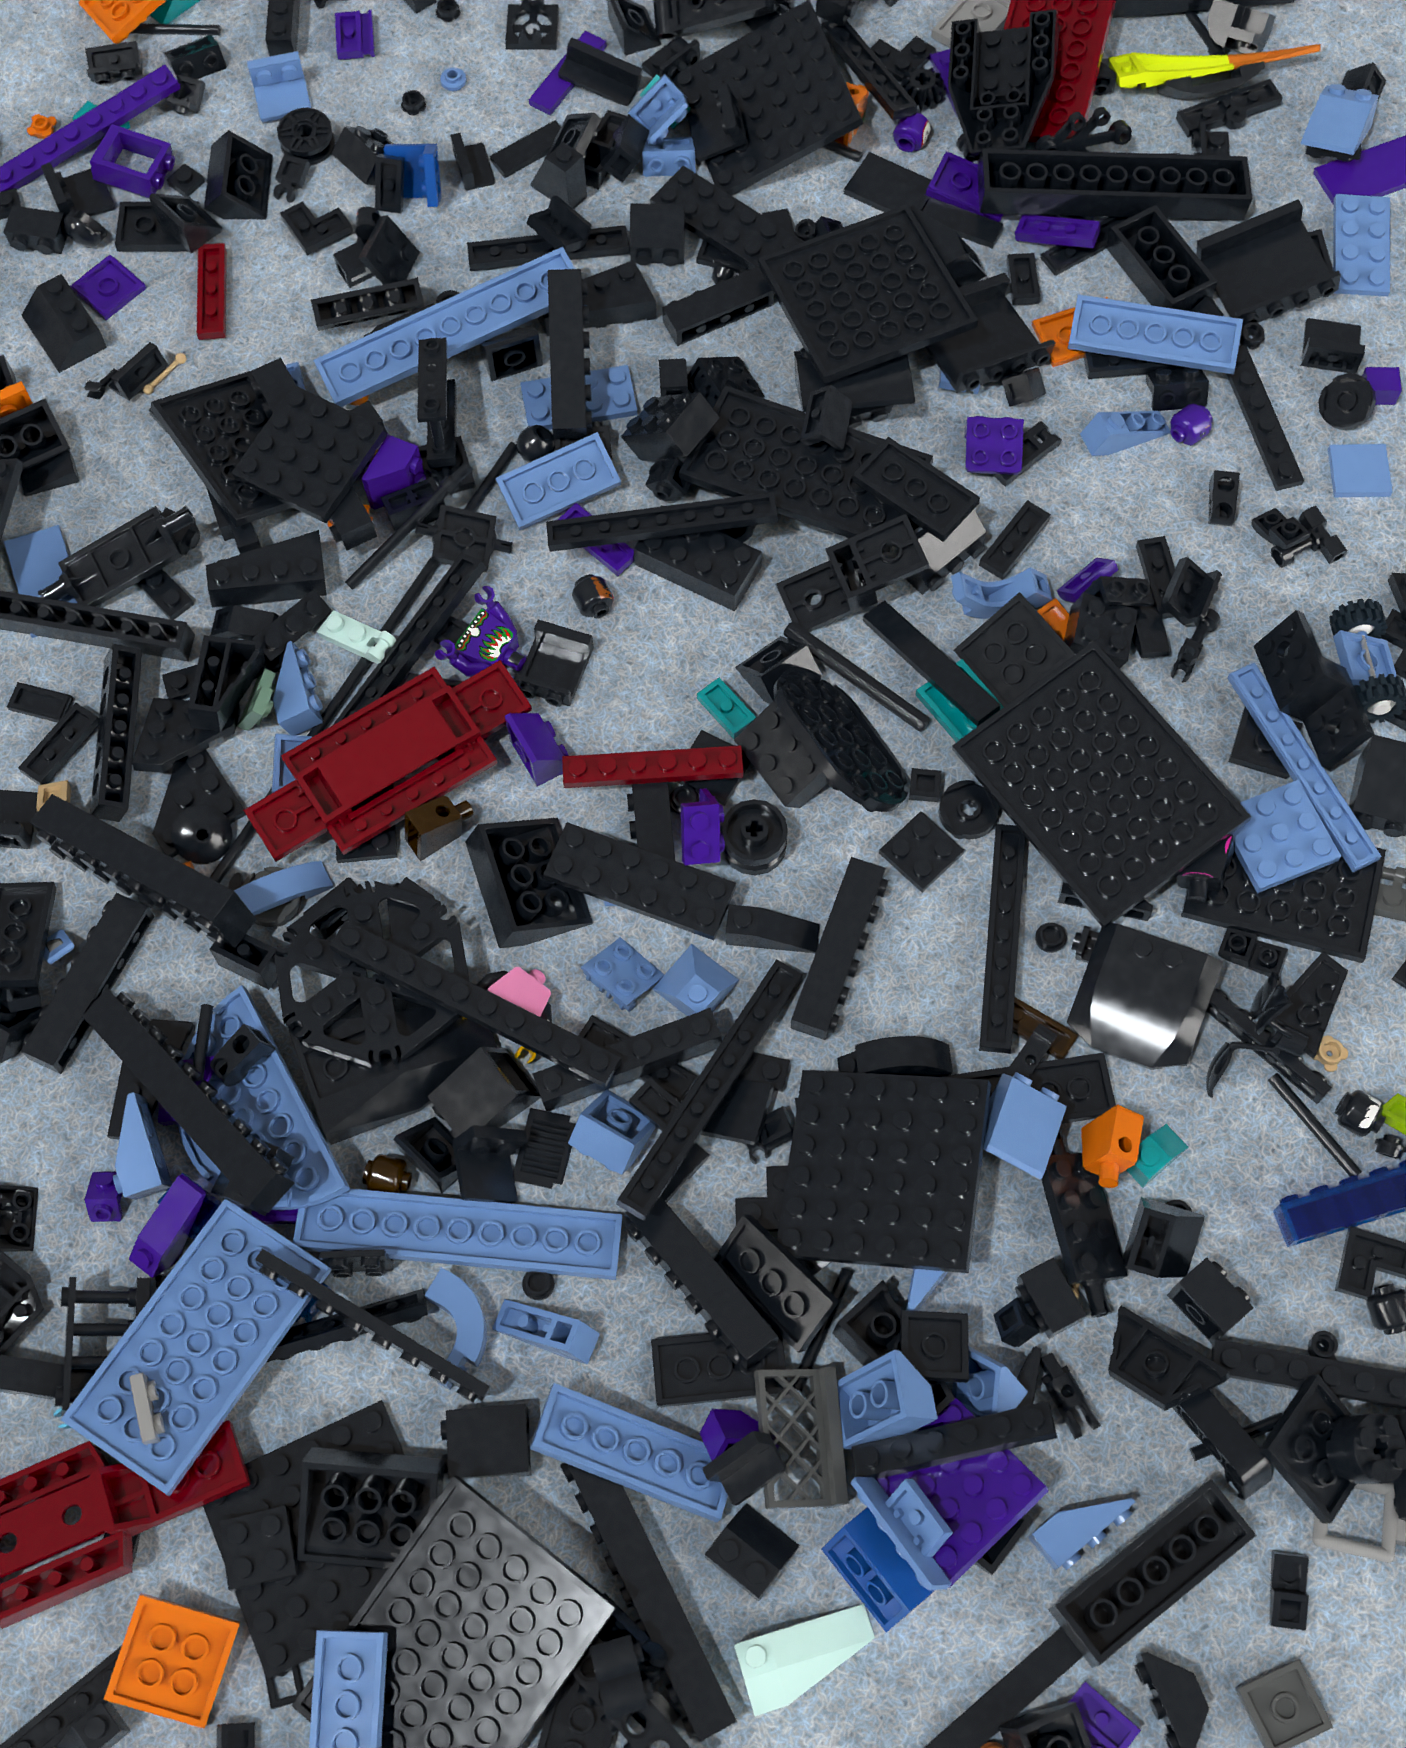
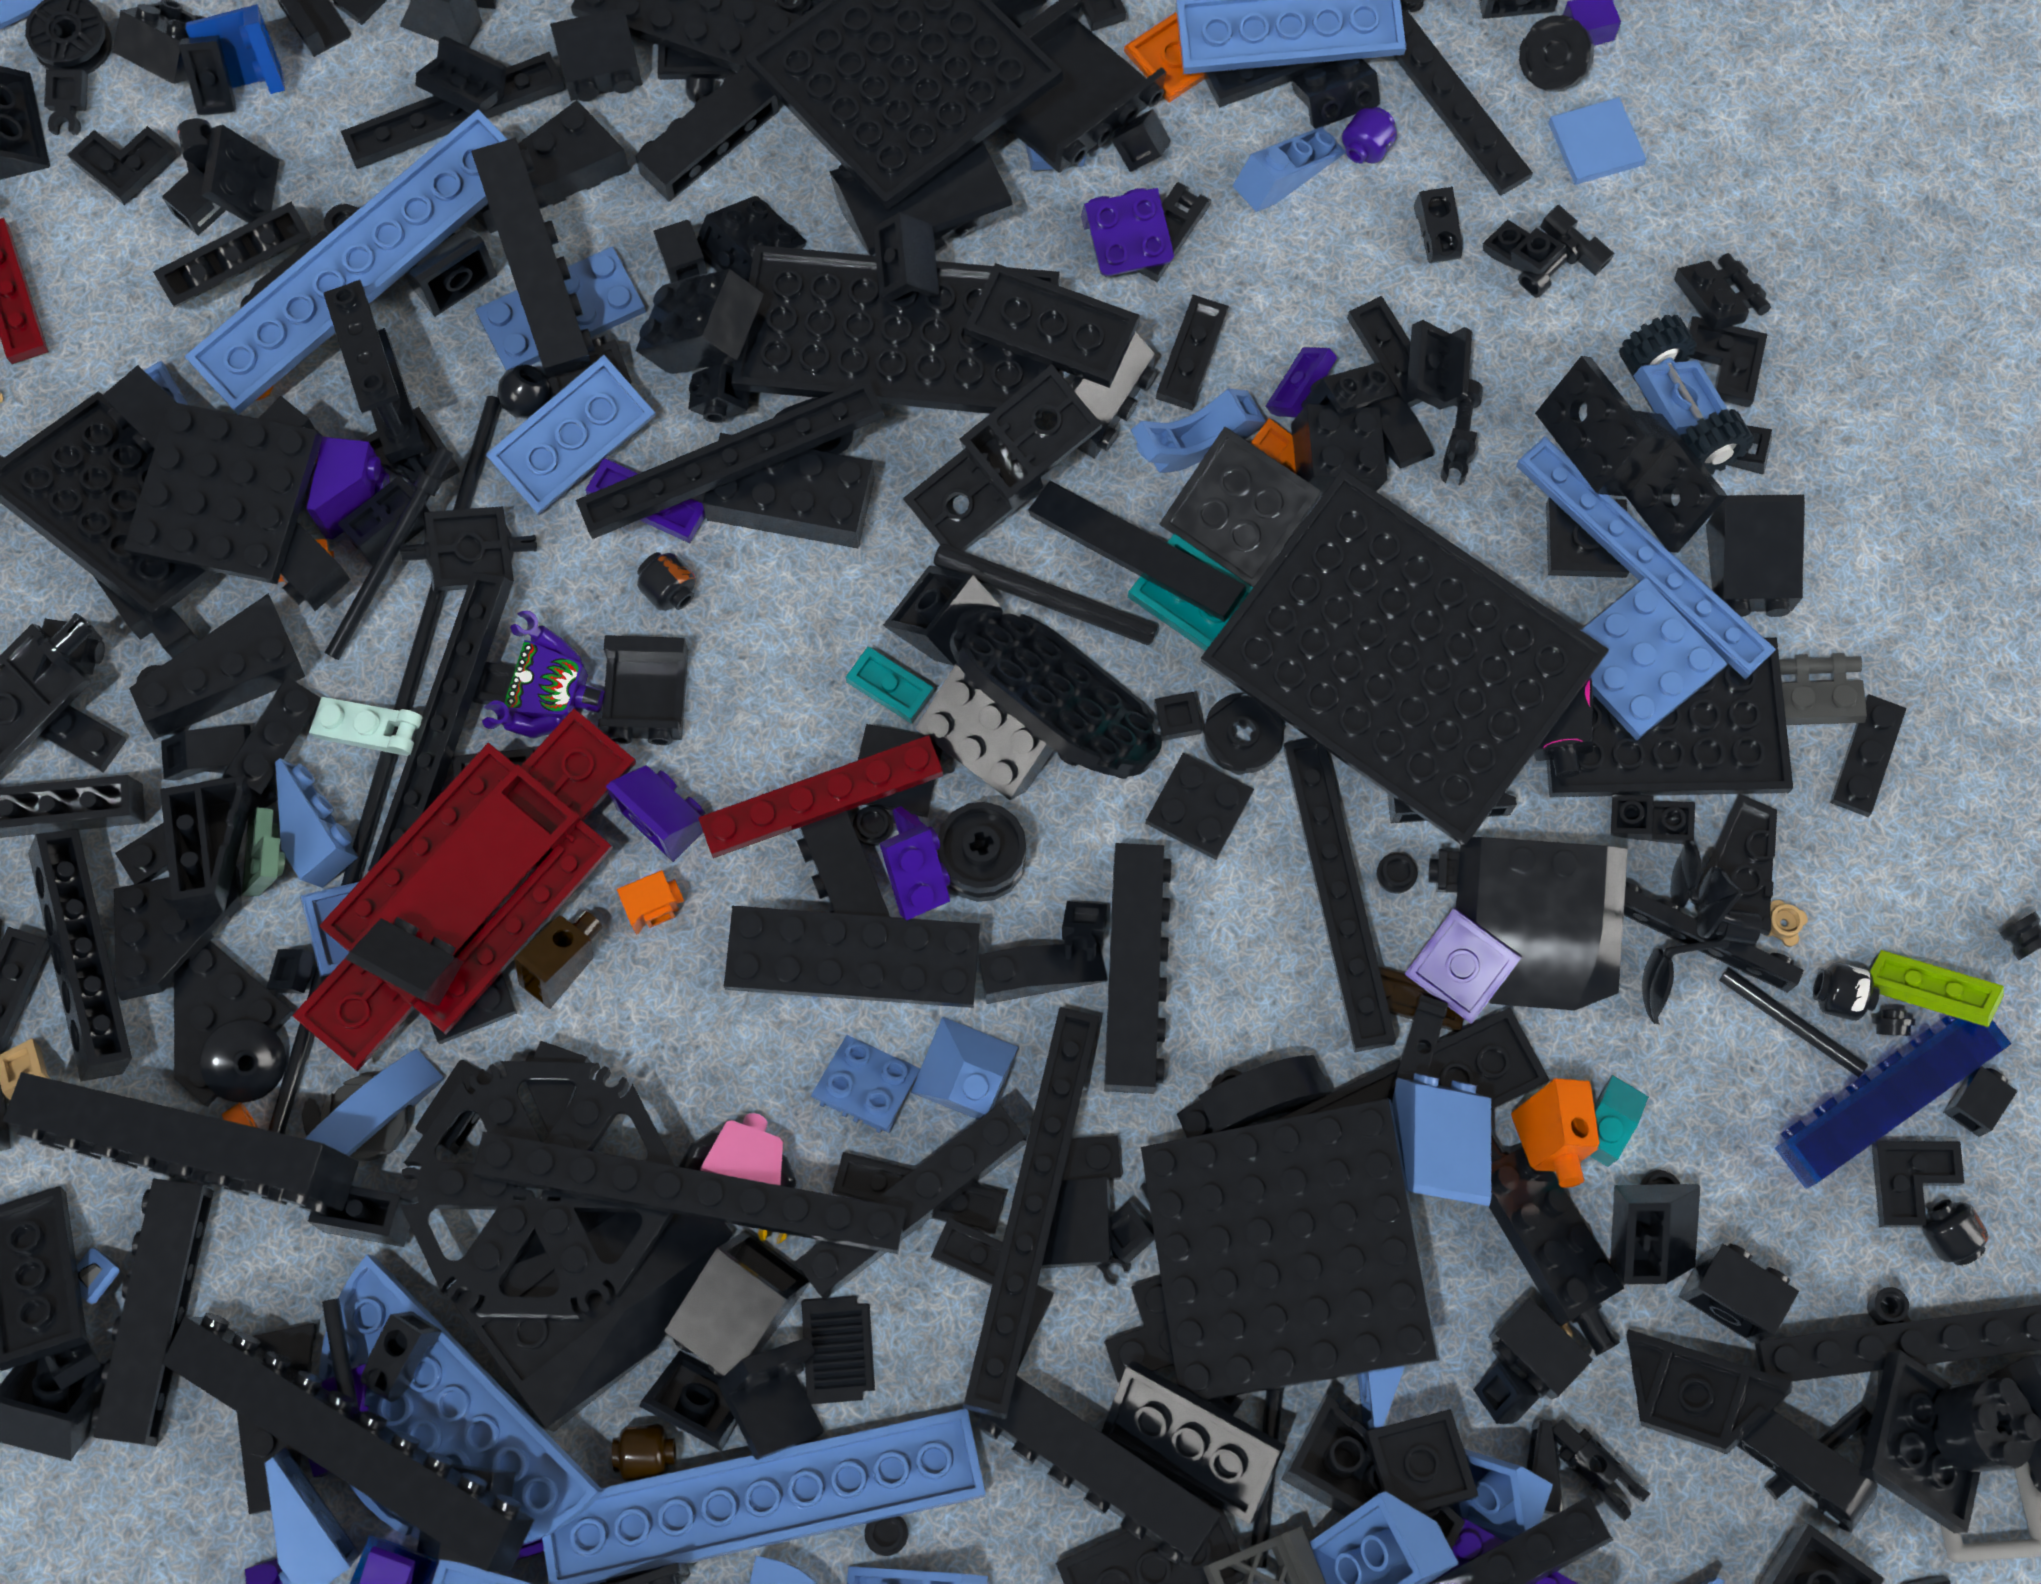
camera: 20 degrees left, 5 degrees up
(253, 784) = (291, 971): none -> black plate
(331, 791) = (406, 960): none -> black slope
(510, 872) = (677, 992): black slope -> none
(512, 804) = (650, 900): none -> orange window
(611, 1132) = (919, 1303): medium blue slope -> none
(810, 909) = (1083, 927): none -> black plate
(1077, 1012) = (1463, 965): none -> tile

